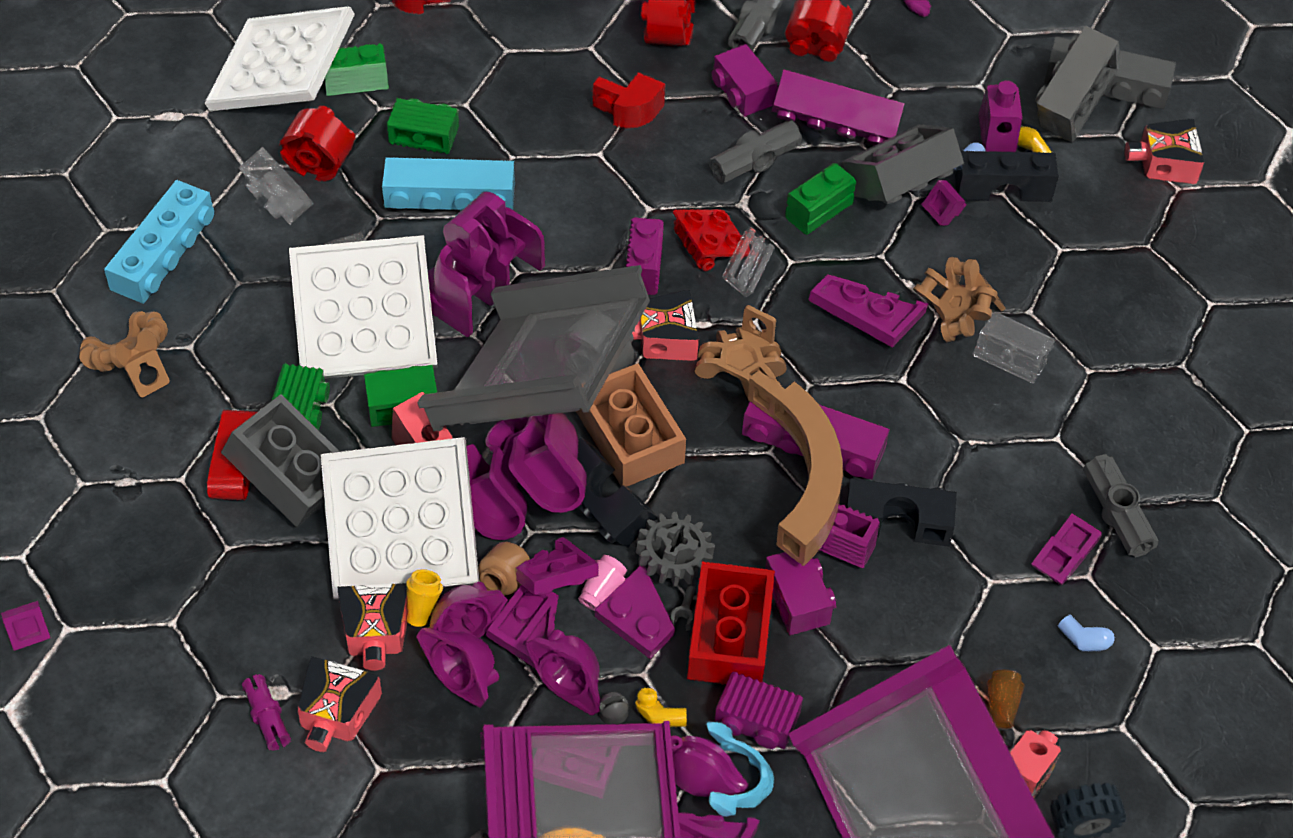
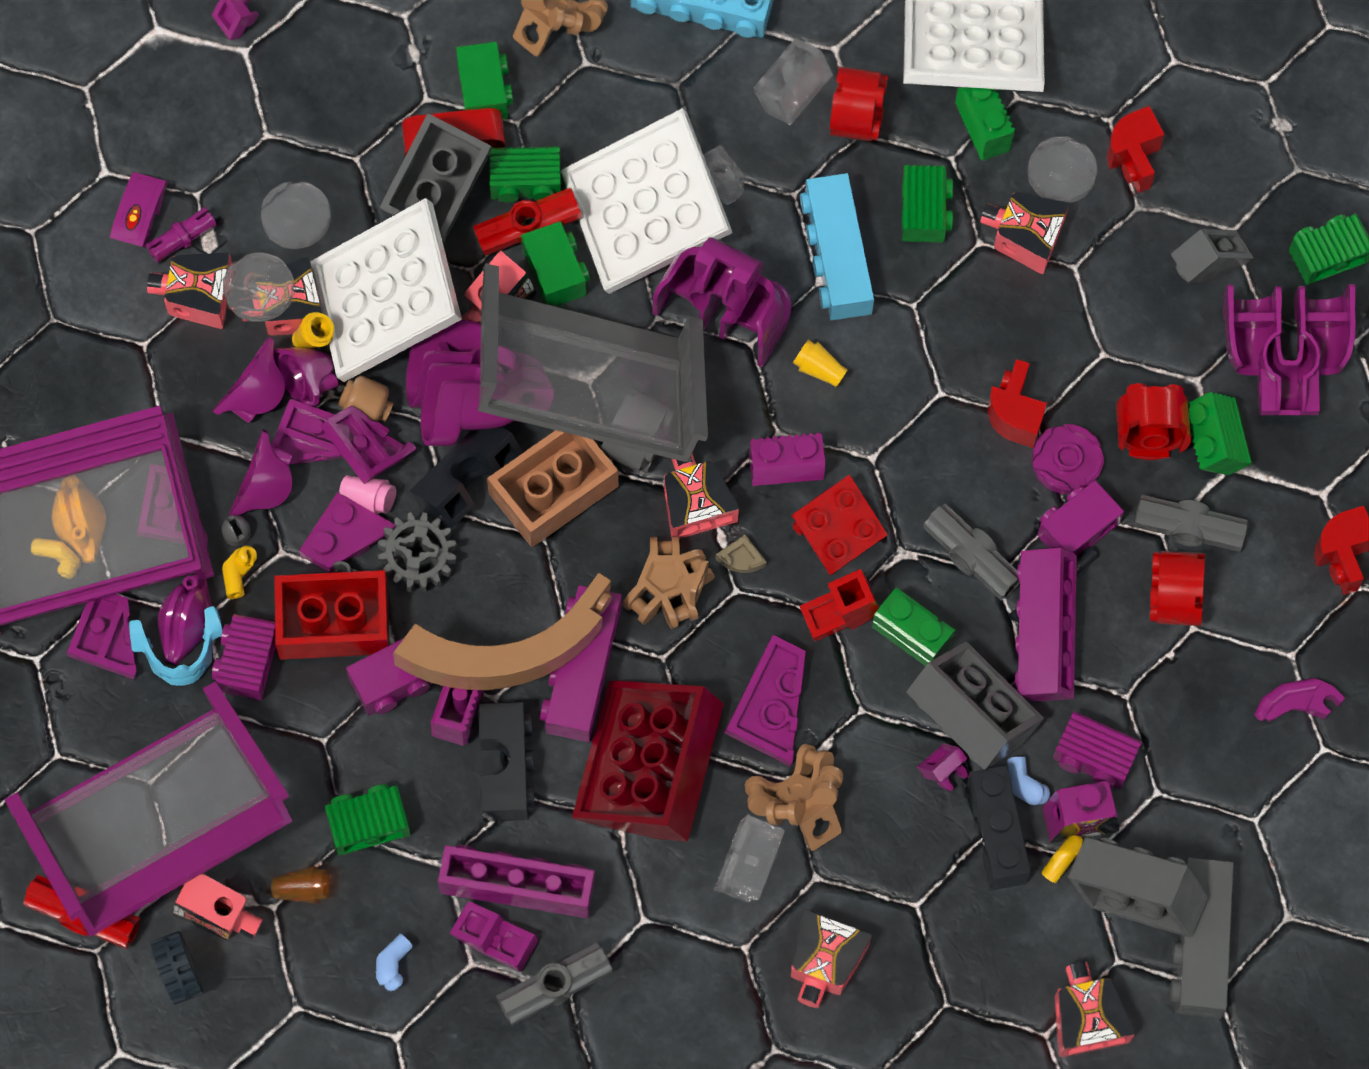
camera: 80 degrees right, 15 degrees up
(184, 421) = (481, 77): none -> green brick
(224, 746) = (137, 209): none -> magenta slope
(274, 607) = (295, 215): none -> clear tile
(349, 389) = (507, 228): none -> red piece
(361, 631) = (258, 287): none -> clear tile
(416, 39) = (1062, 169): none -> clear tile
(469, 63) = (1027, 228): none -> torso
(556, 221) = (819, 363): none -> yellow cone
(685, 82) = (1067, 458): none -> magenta tile
(724, 310) = (741, 557): none -> dark tan tile
(757, 246) = (807, 553): clear tile -> none
(791, 237) = (847, 605): none -> red brick
(919, 397) = (649, 759): none -> dark red slope
(942, 623) = (367, 819): none -> green brick
(947, 103) = (1096, 750): none -> magenta brick
(1023, 514) = (516, 881): none -> magenta brick
(1108, 308) = (826, 956): none -> torso

